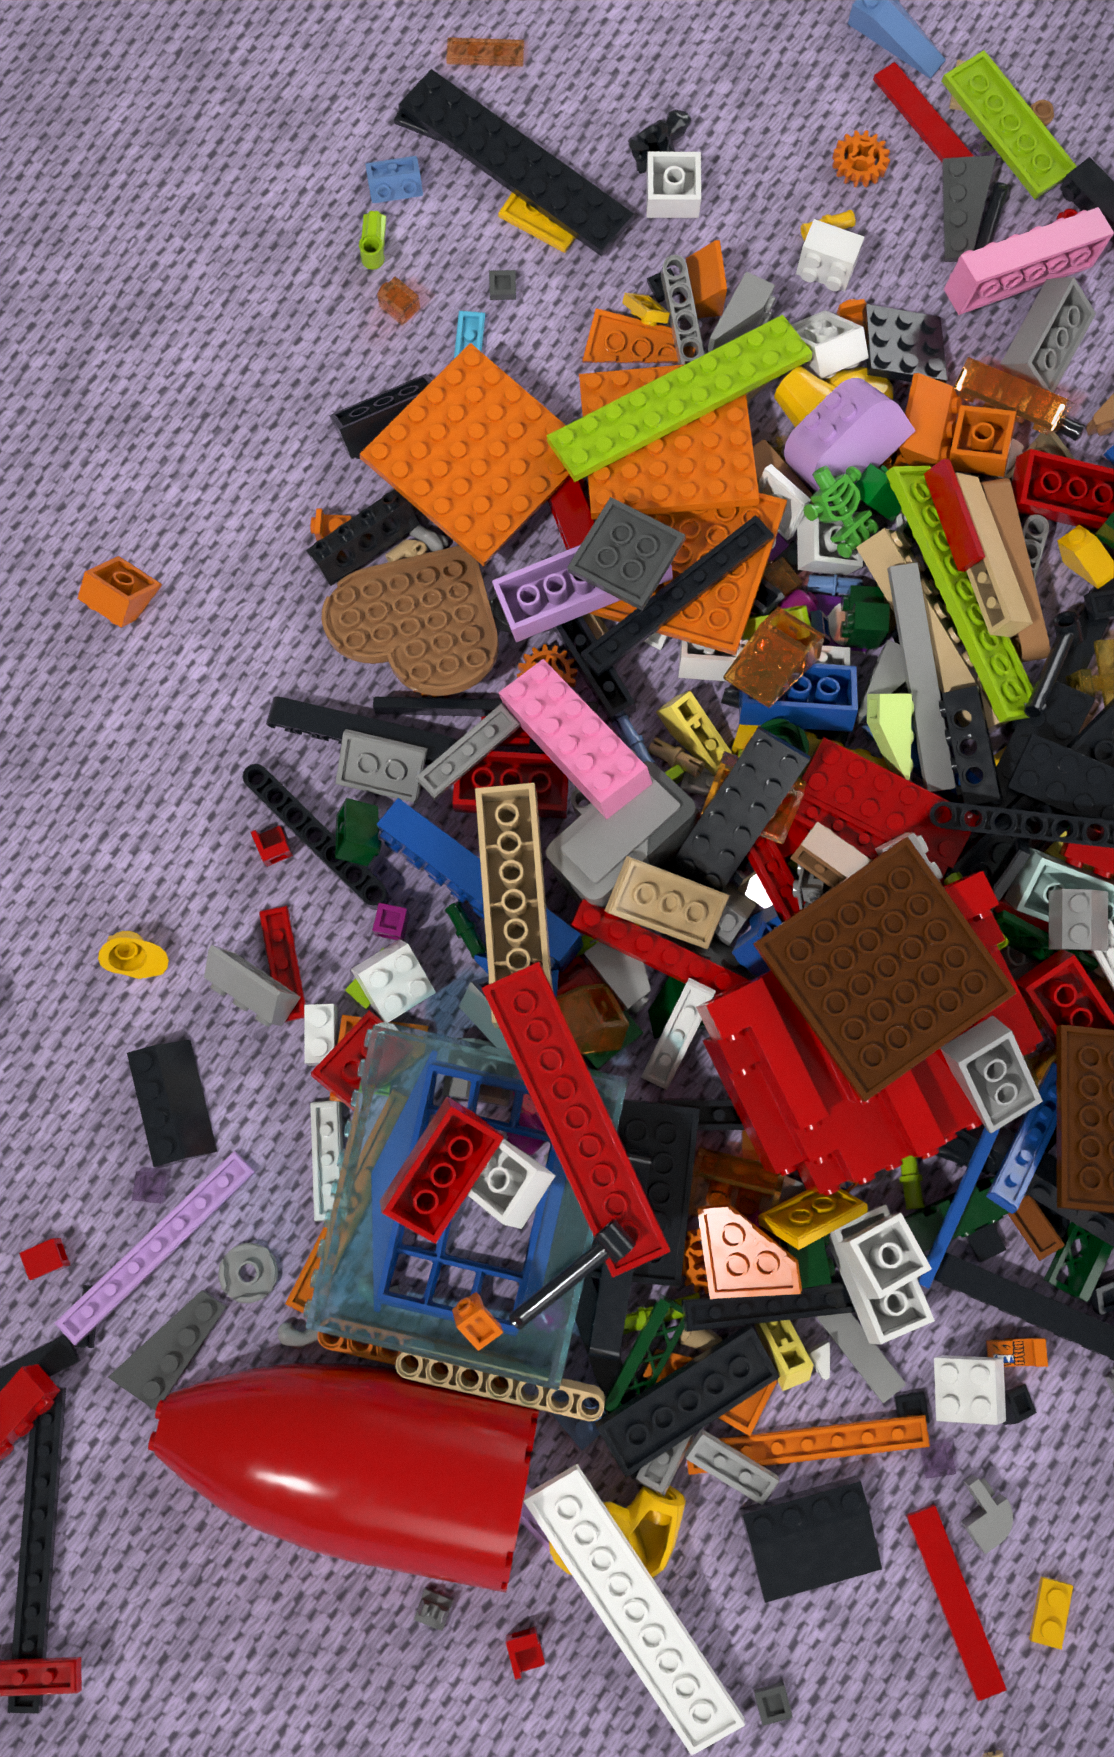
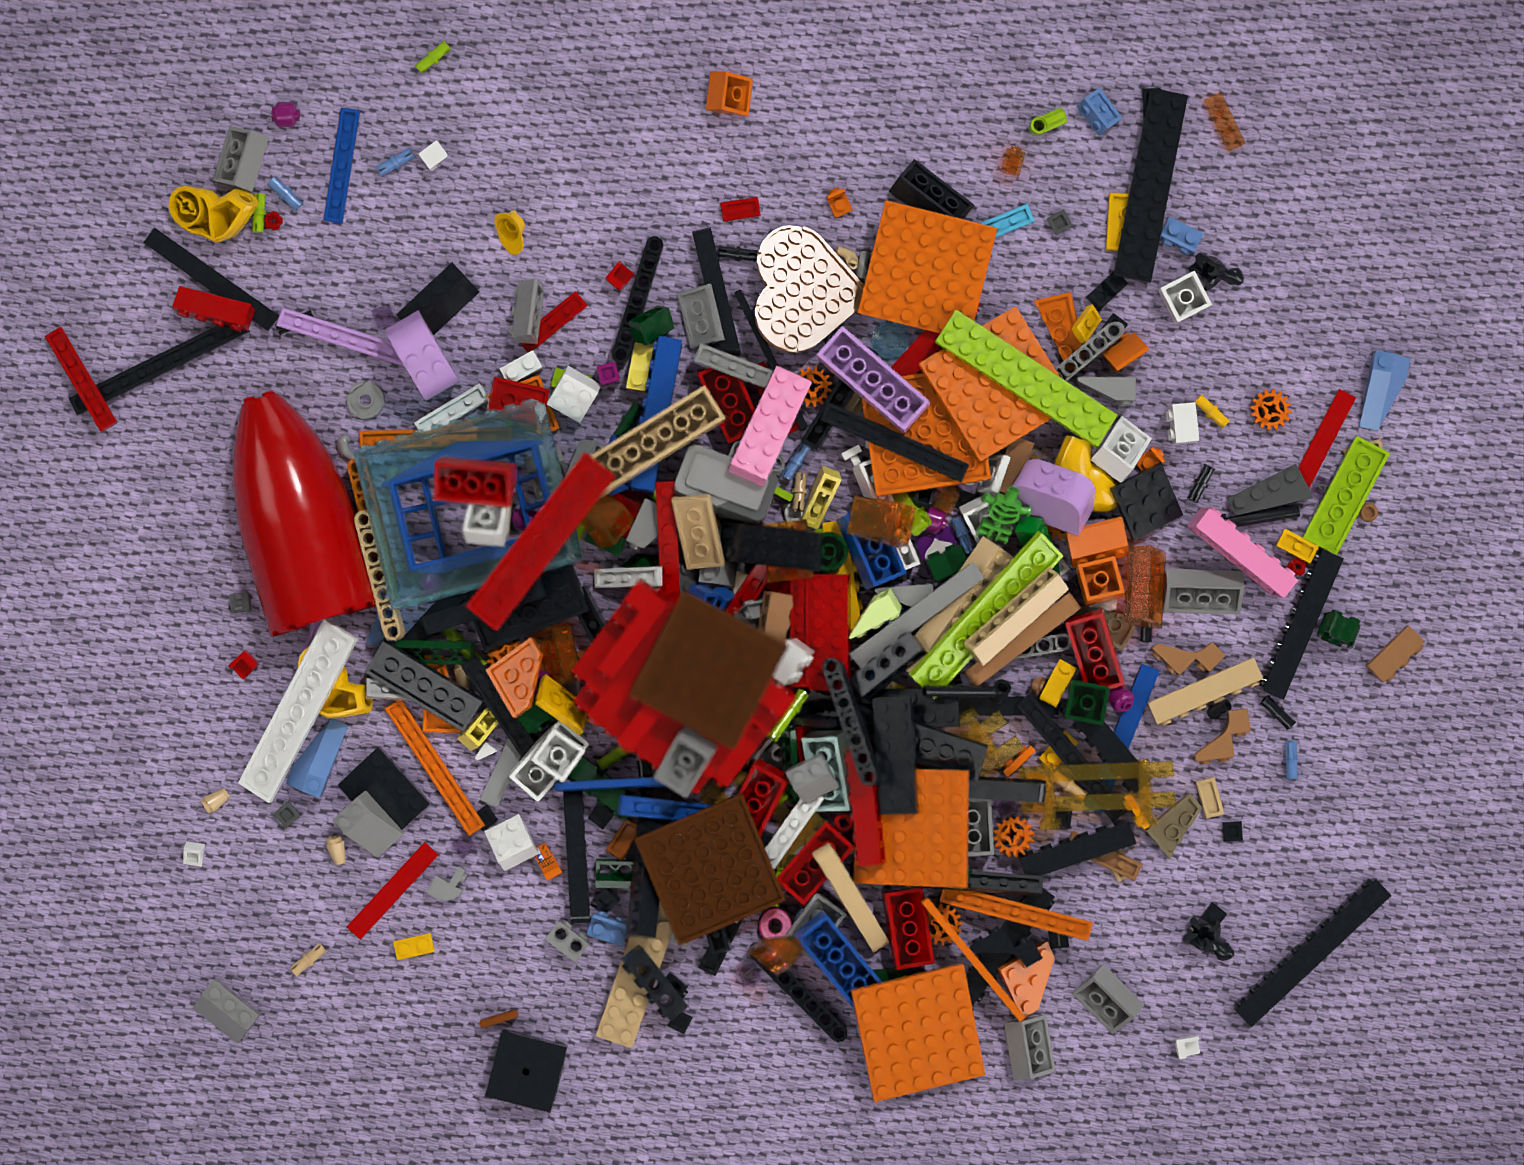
camera: 60 degrees right, 10 degrees up
(44, 1258) = (313, 280): red panel -> none
(165, 1356) = (295, 378): dark grey wing -> none
(228, 1158) = (422, 355): none -> lavender brick
(272, 651) = (740, 209): none -> red tile
(327, 681) = (737, 253): none -> black pin
(363, 537) = (839, 226): black brick -> none
(404, 878) = (639, 367): none -> light yellow slope
(476, 1321) = (404, 544): orange bracket -> none
(536, 546) = (889, 340): none -> clear light blue dish
(597, 159) = (1181, 236): none -> medium blue bracket
(611, 1243) = (483, 595): black piece -> none
(615, 273) = (1106, 291): none -> black slope
(626, 553) = (896, 399): dark grey plate -> none
(663, 667) = (852, 455): none -> white tile
(723, 1625) = (316, 763): none -> medium blue wedge
(731, 1467) = (400, 729): light grey plate -> none
(821, 623) = (926, 539): dark blue tile -> none
(845, 1589) = (368, 824): none -> light grey slope
(857, 1655) = (336, 849): none -> tan cone
(910, 278) = (1200, 483): none -> black pin
(954, 515) = (1030, 585): red tile -> none
(1018, 1405) = (517, 876): black slope -> none
(1044, 207) = (1297, 546): none -> yellow plate
(1077, 585) = (1038, 685): none -> medium nougat plate

